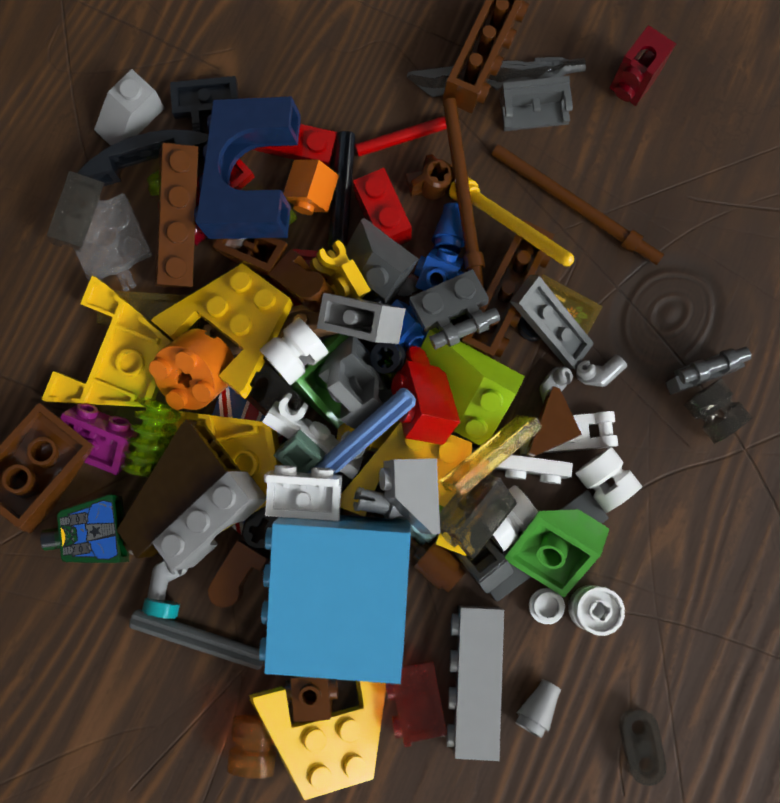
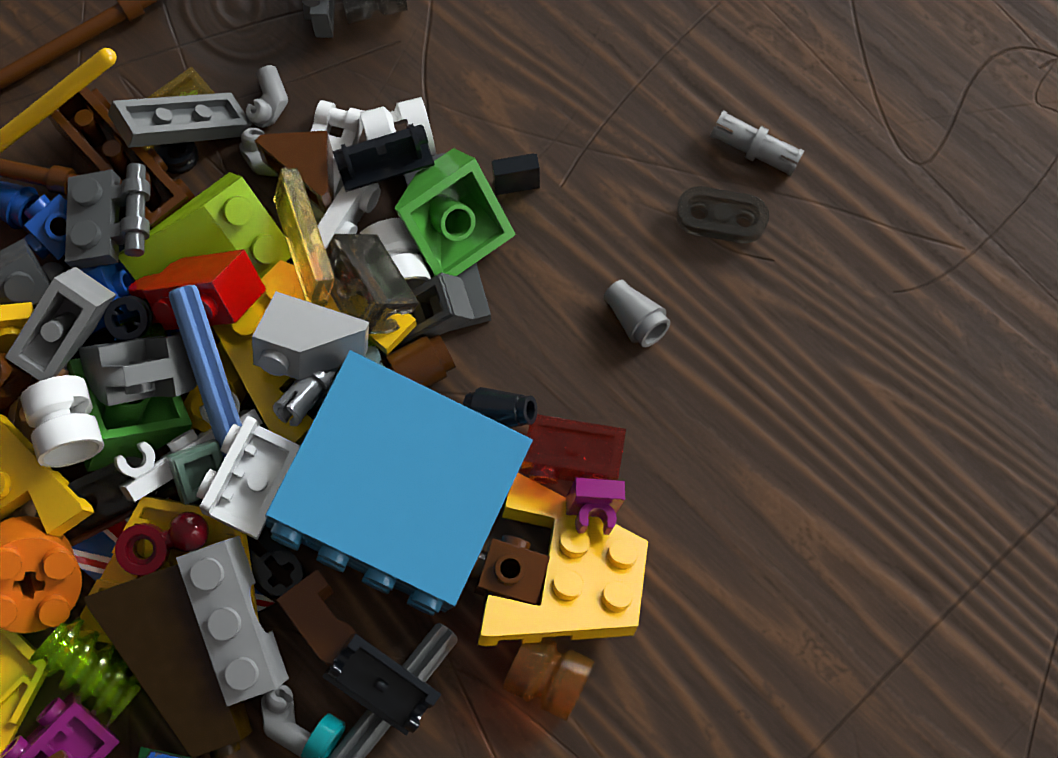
camera: 70 degrees left, 10 degrees down
(205, 636) = (381, 684): none -> black hinge
(253, 464) = (185, 532): none -> dark red plate
(384, 736) = (595, 499): none -> magenta tile
(425, 635) = (502, 406): none -> black cone
(477, 683) = (574, 370): light grey brick -> none
(546, 606) = (519, 261): white plate -> none
(580, 482) = (383, 157): none -> black hinge
(596, 609) = (543, 202): white wheel -> none
(612, 577) = (516, 174): none -> black tile
(712, 753) = (756, 143): none -> light grey pin

